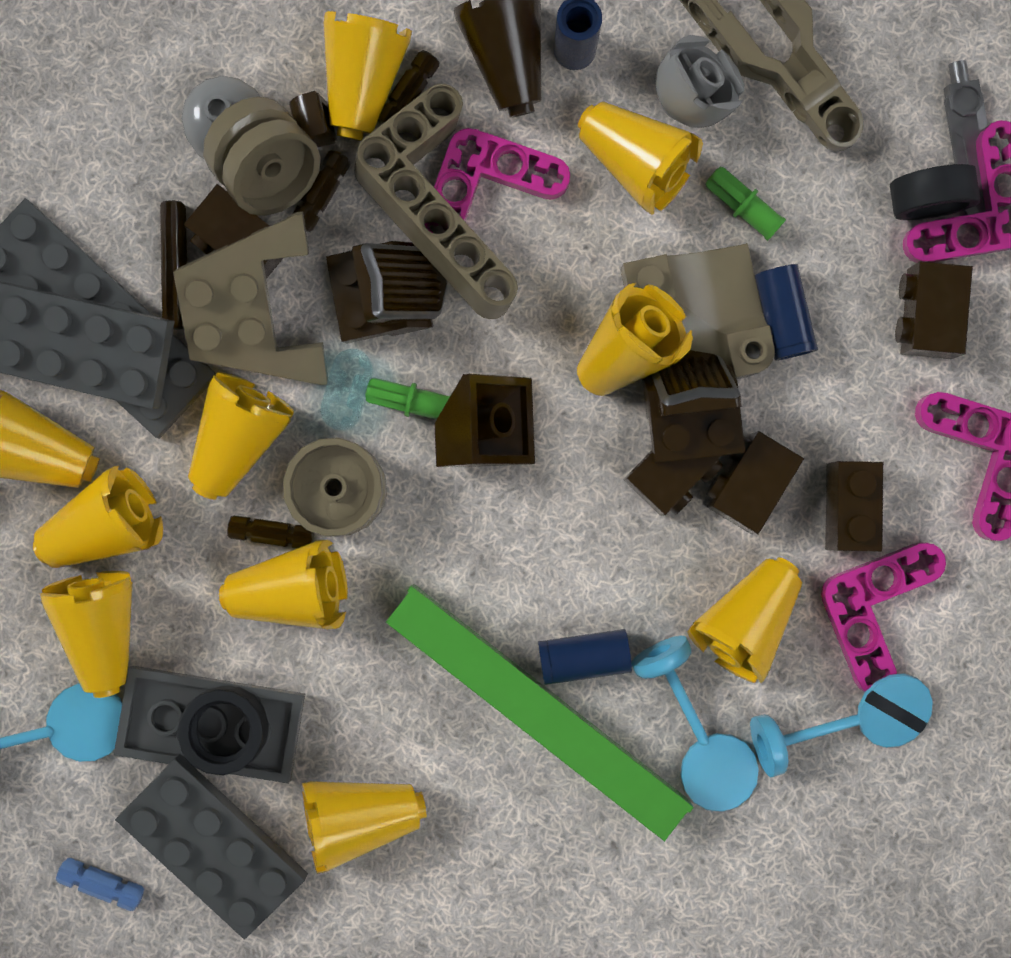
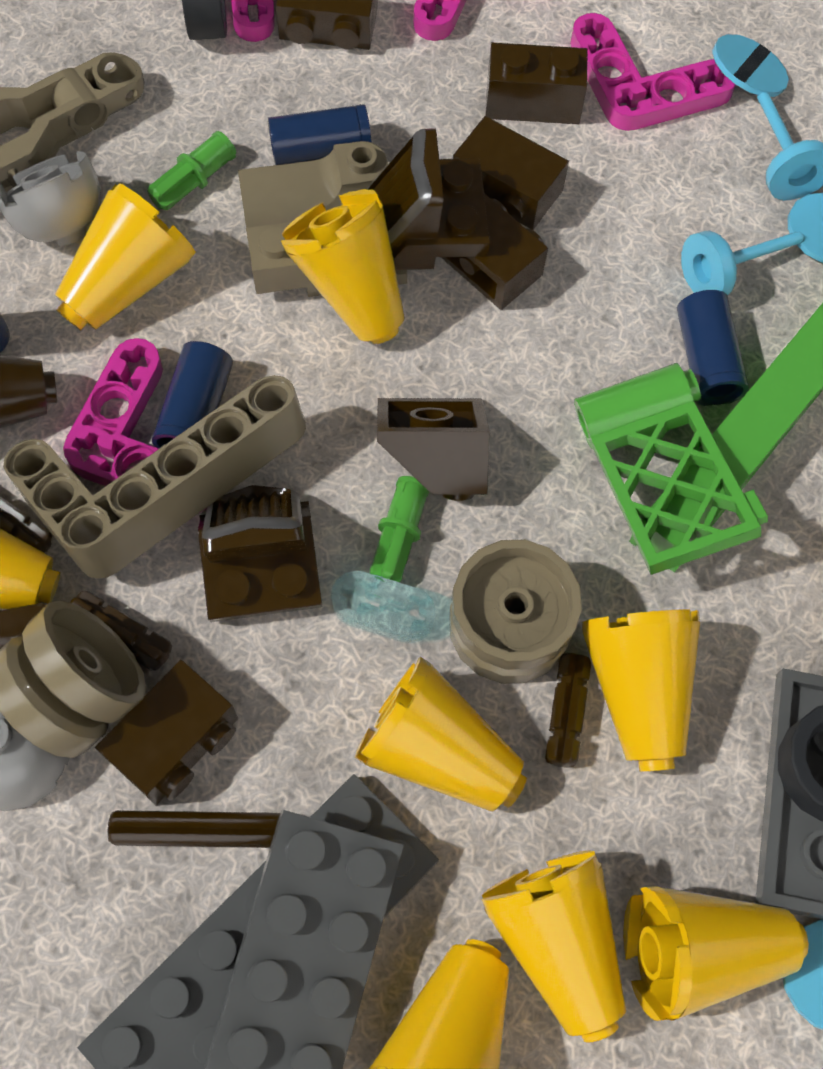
camera: 90 degrees left, 20 degrees down
(229, 306) = (265, 736): dark tan wing -> none
(515, 226) = (194, 389): none -> dark blue pin
(517, 597) = (640, 415): none -> bright green piece
(750, 620) = (665, 178): yellow cone -> none

